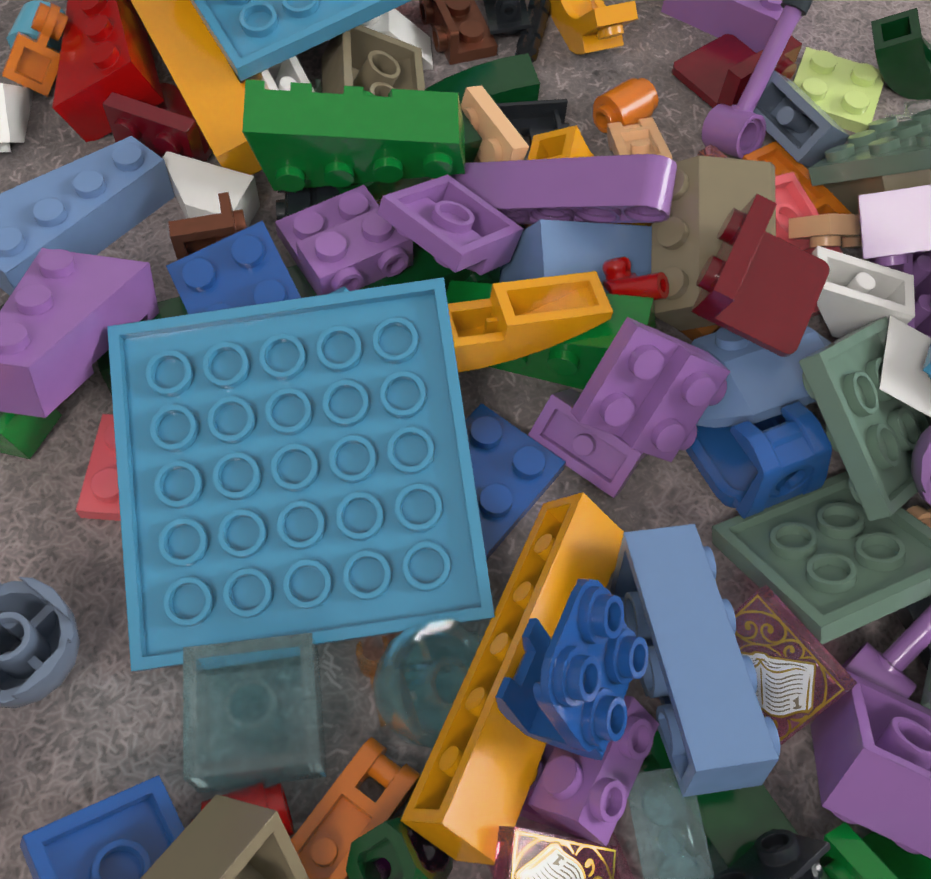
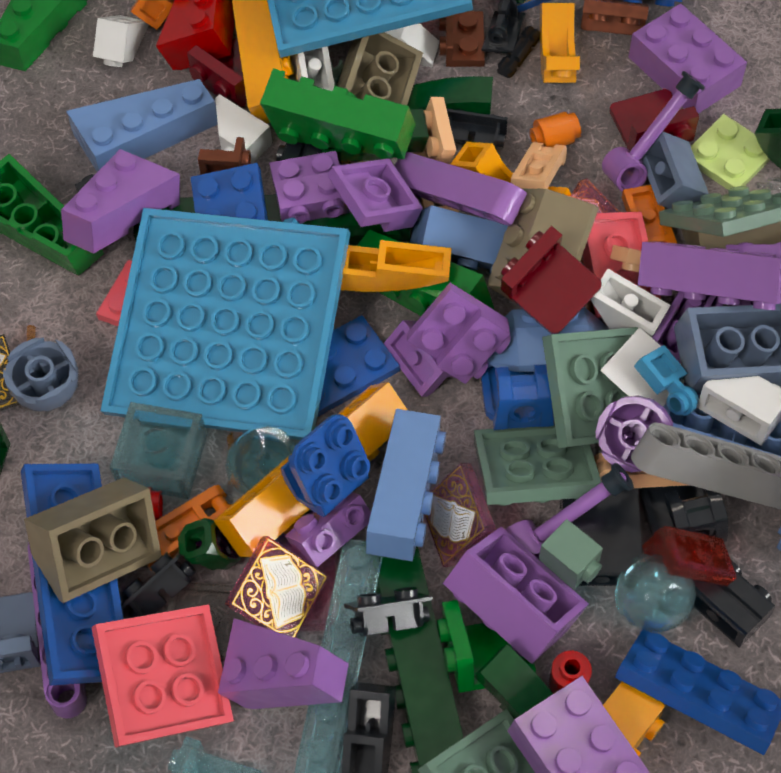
camera: 25 degrees right, 0 degrees up
(622, 282) = (476, 260): red arm -> none

